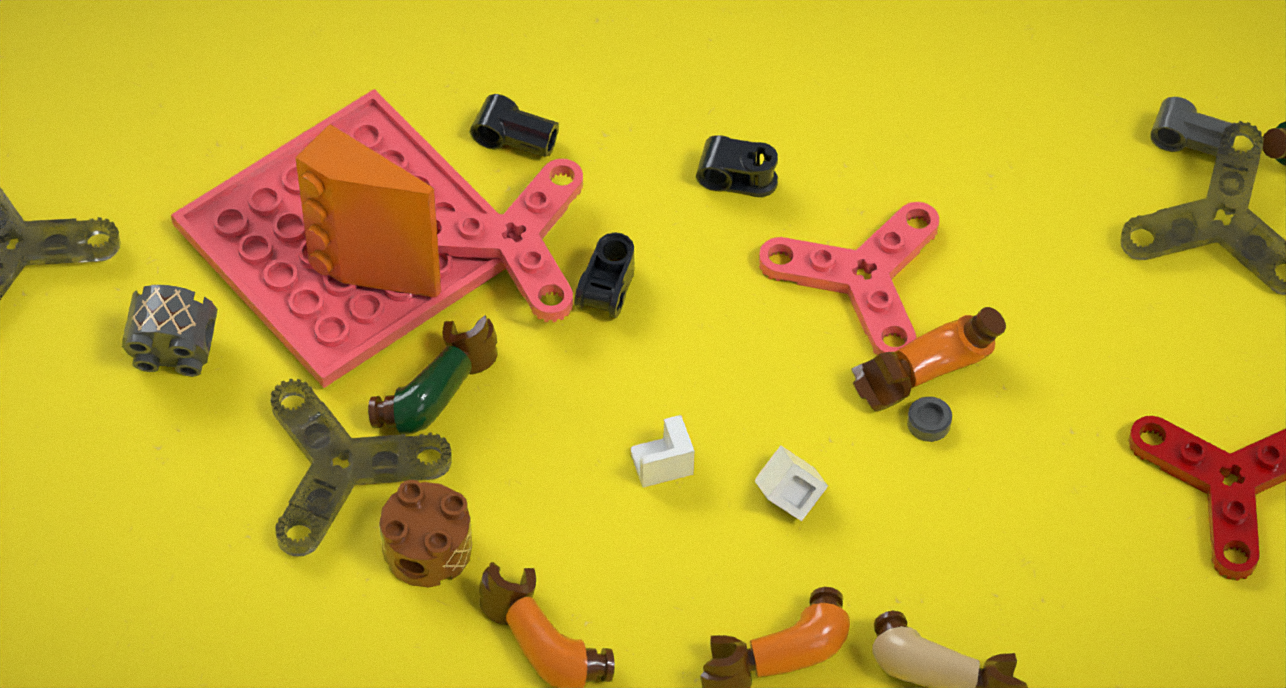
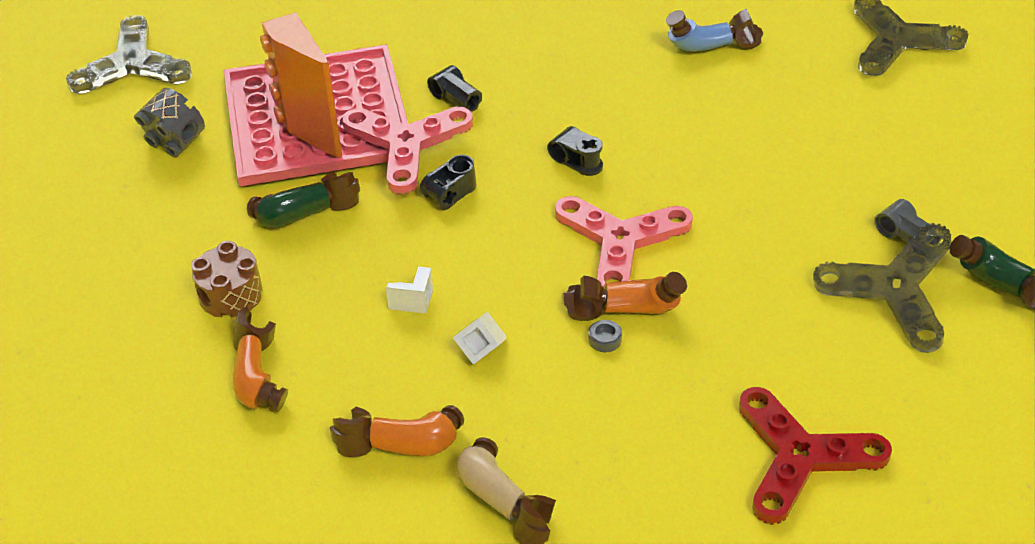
camera: 30 degrees right, 10 degrees down
(328, 486) = (196, 235): clear smoke piece -> none

